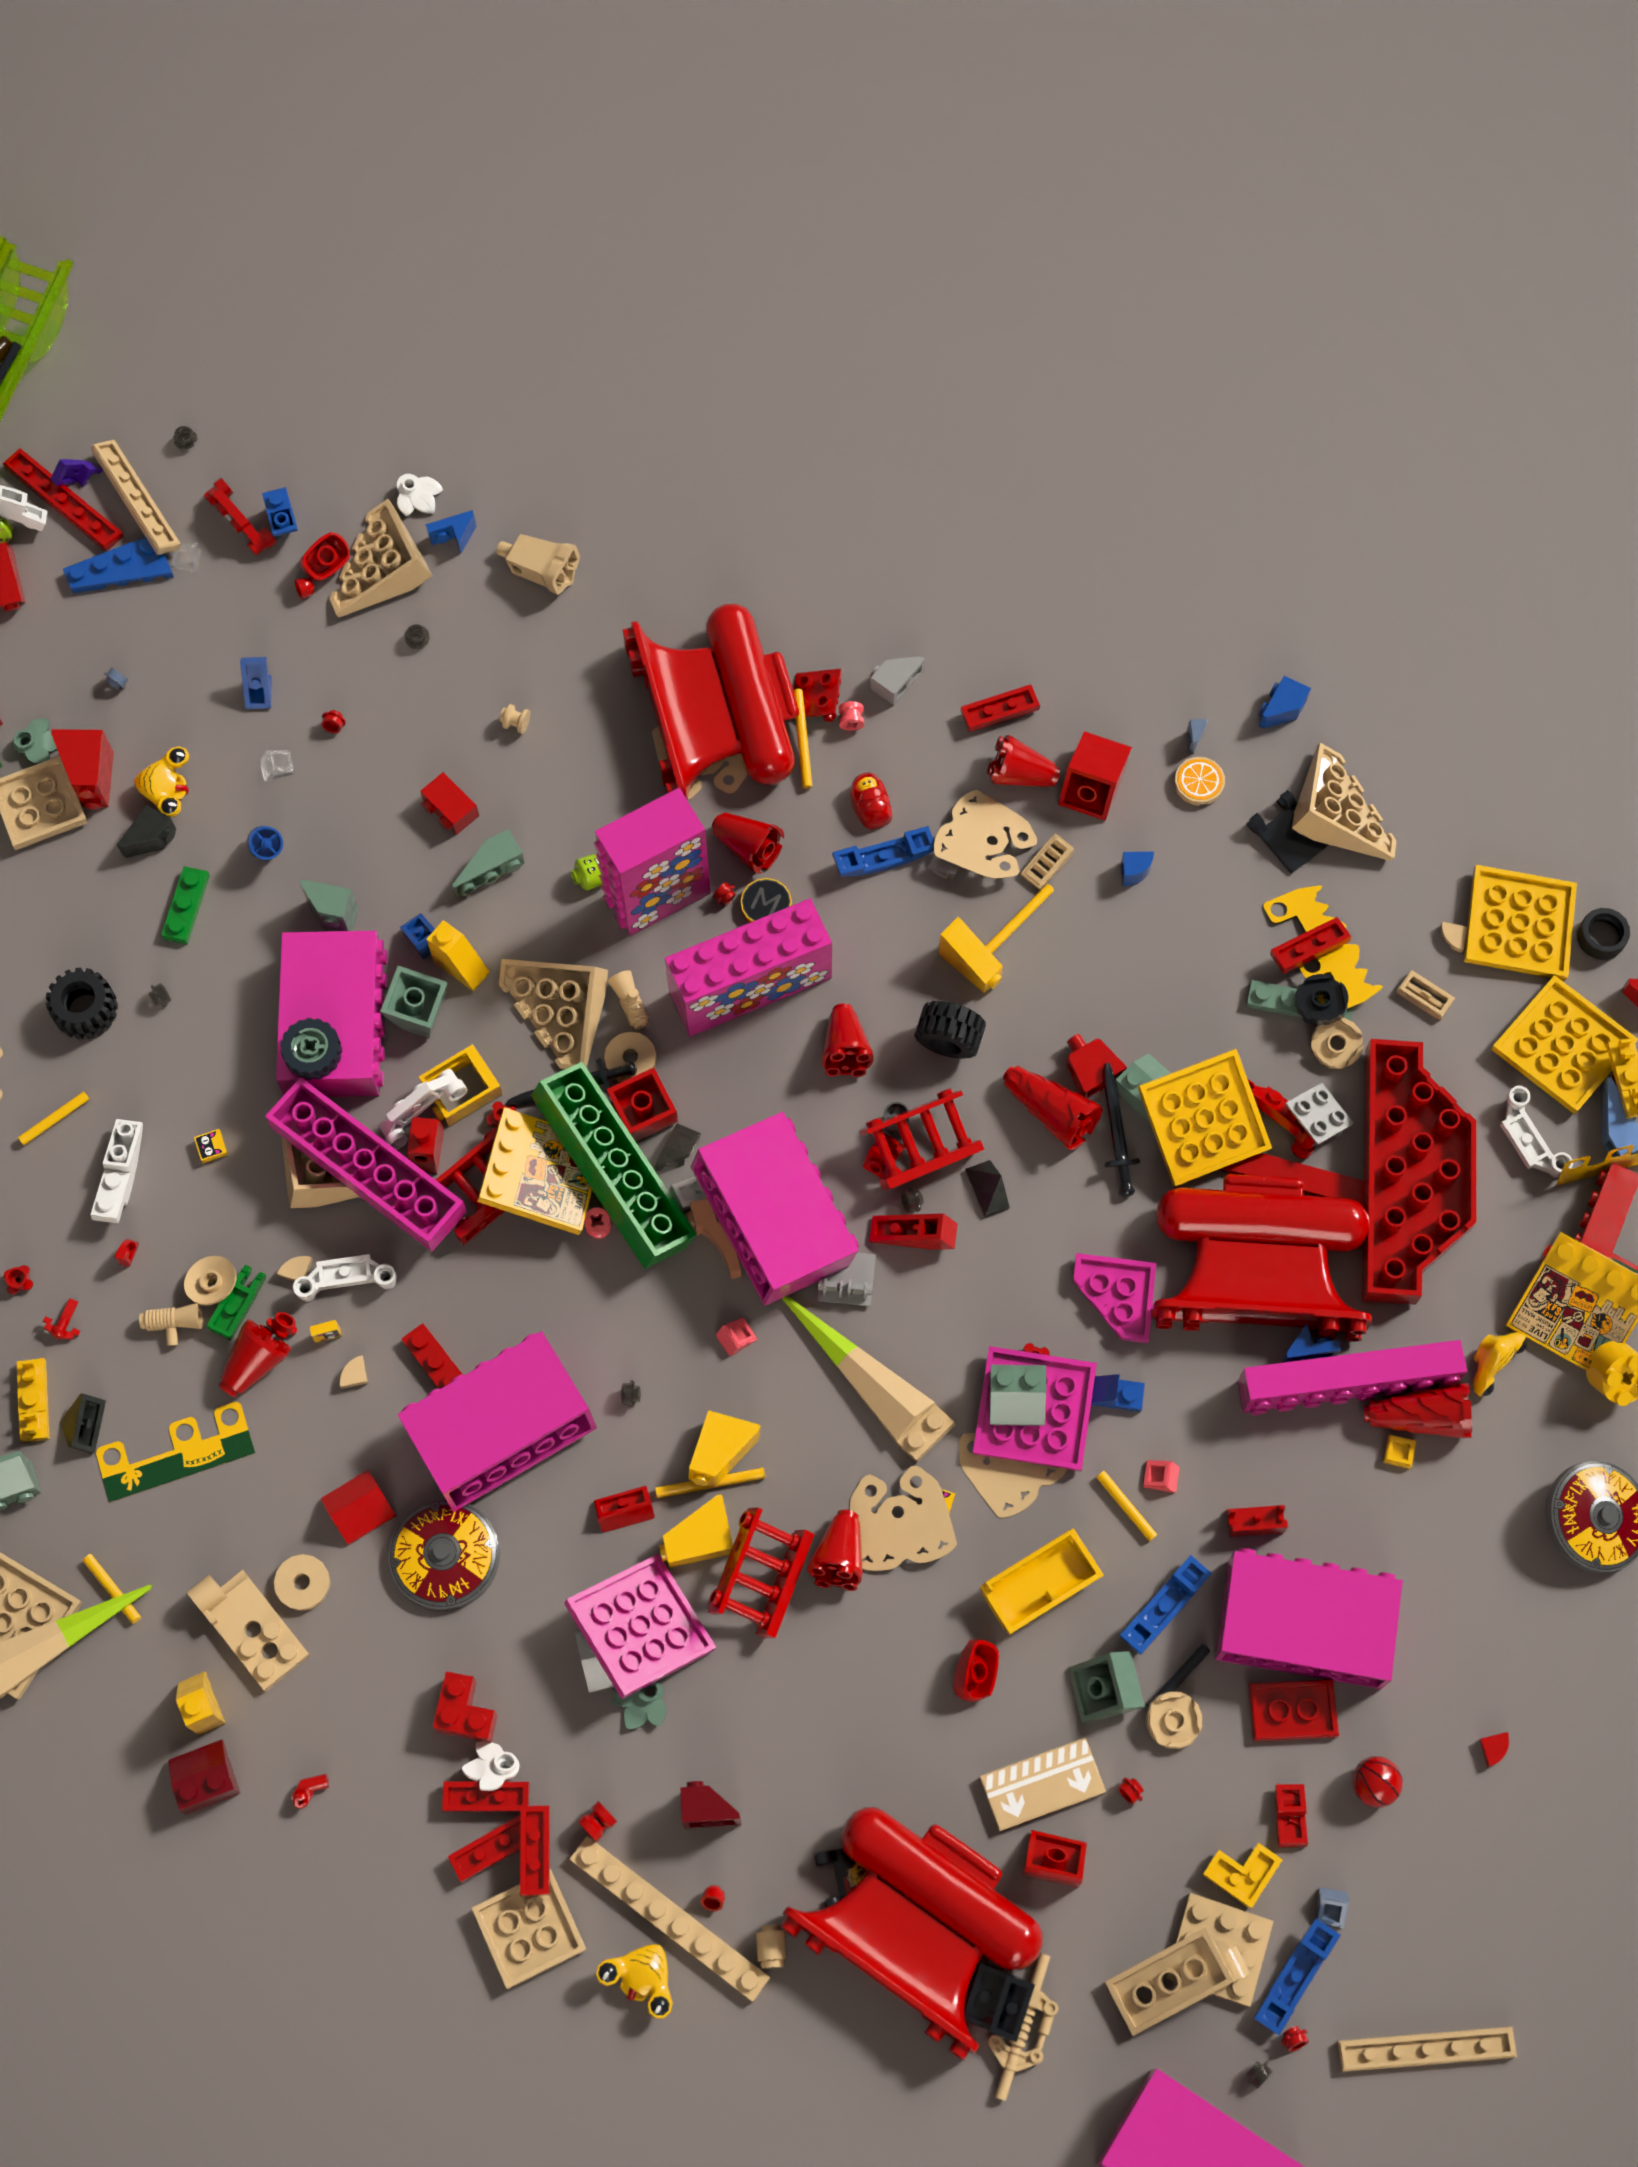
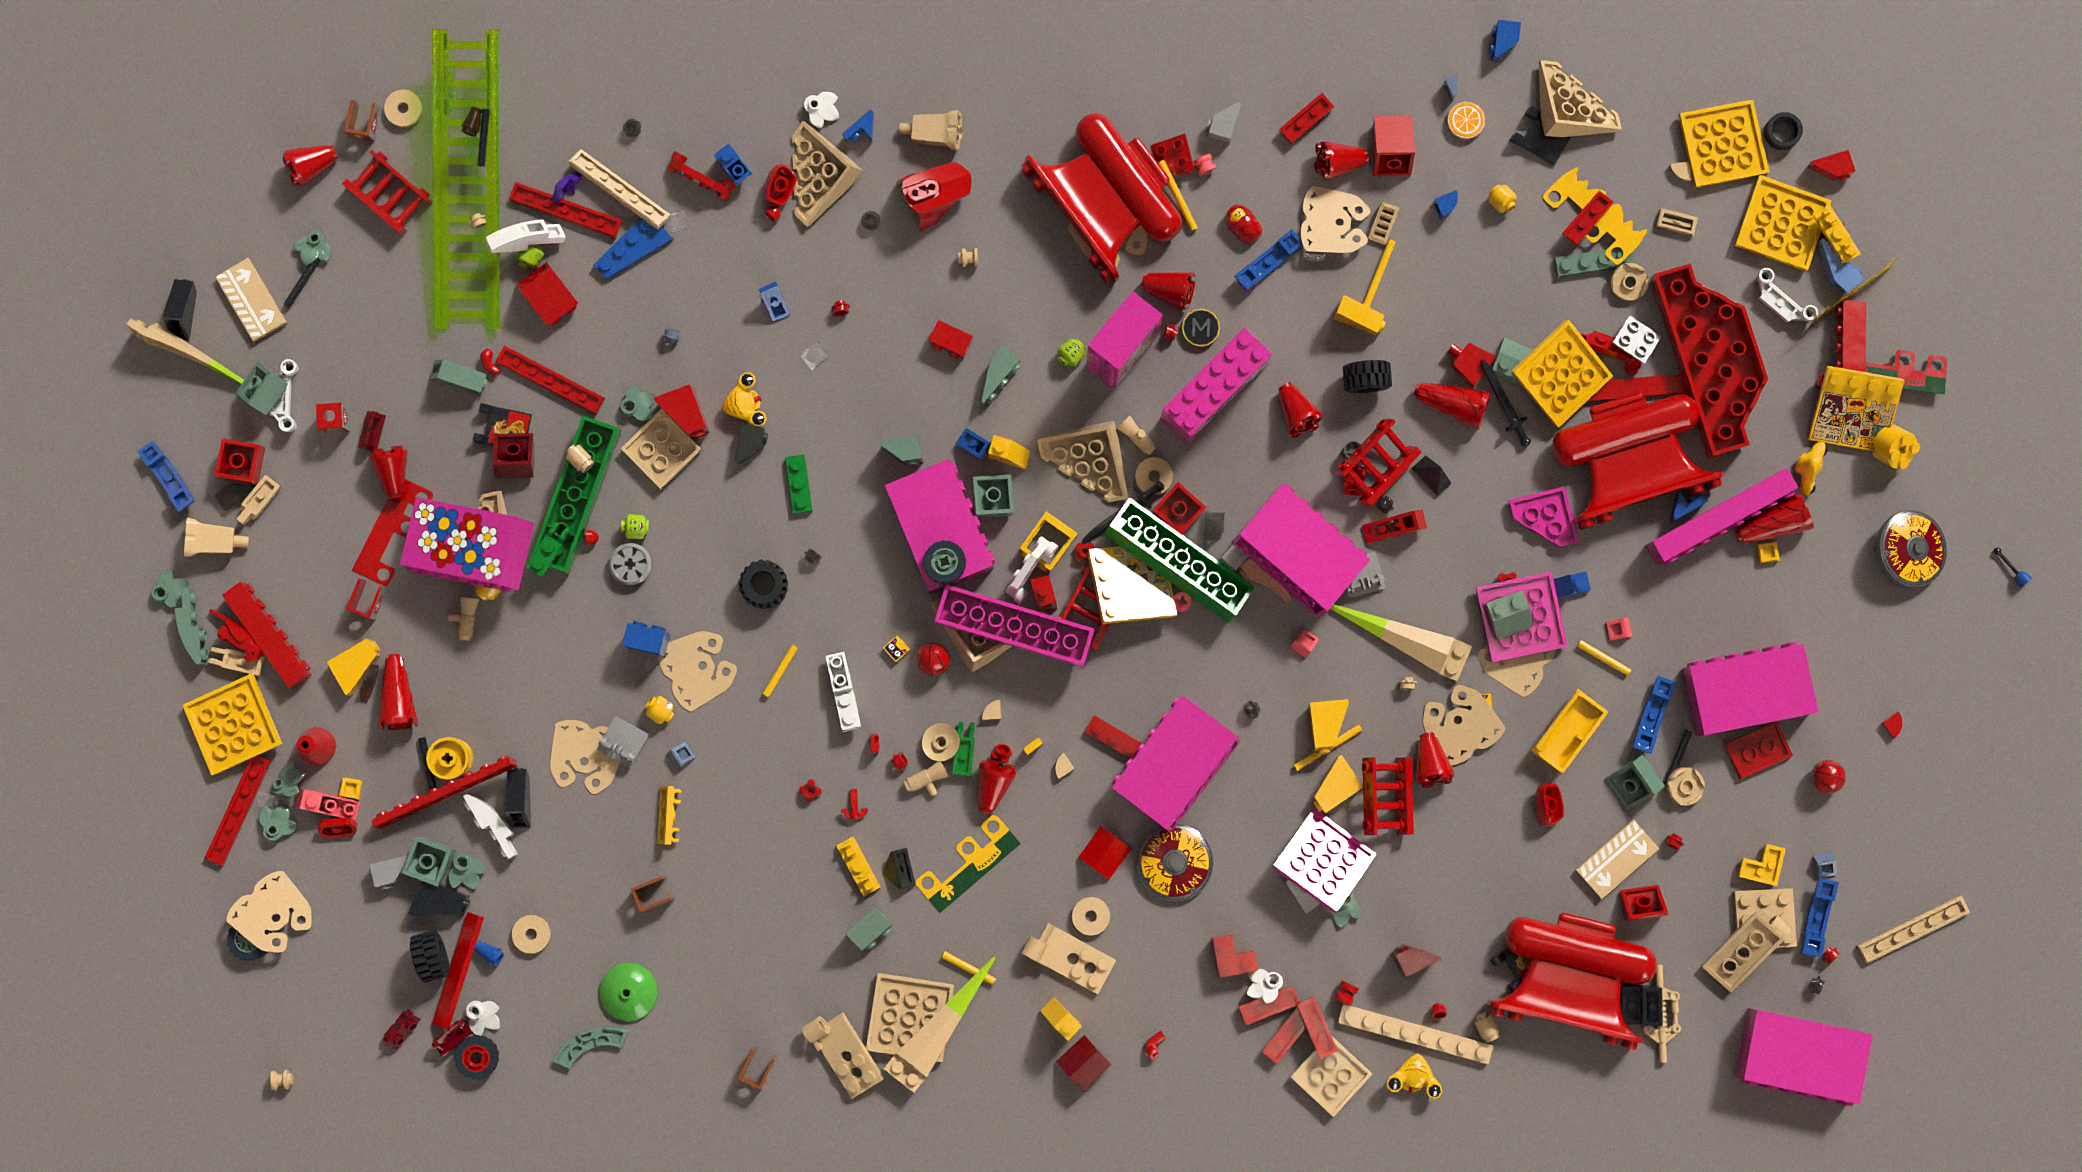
camera: 20 degrees left, 15 degrees up
(148, 1285) = (899, 761): none -> red plate
(248, 1172) = (933, 659): none -> red piece
(264, 842) = (837, 420): blue wheel -> none
(344, 1273) = (1027, 701): white plate -> none
(504, 627) = (945, 187): none -> red piece
(624, 1509) = (1278, 786): red slope -> none
(849, 1439) = (1407, 683): none -> tan plate
(1209, 885) = (1502, 198): none -> yellow head
(1256, 1521) = (1691, 635): red hinge -> none
(1291, 1815) = (1780, 818): red slope -> none
(1321, 1013) = (1611, 246): black plate -> none

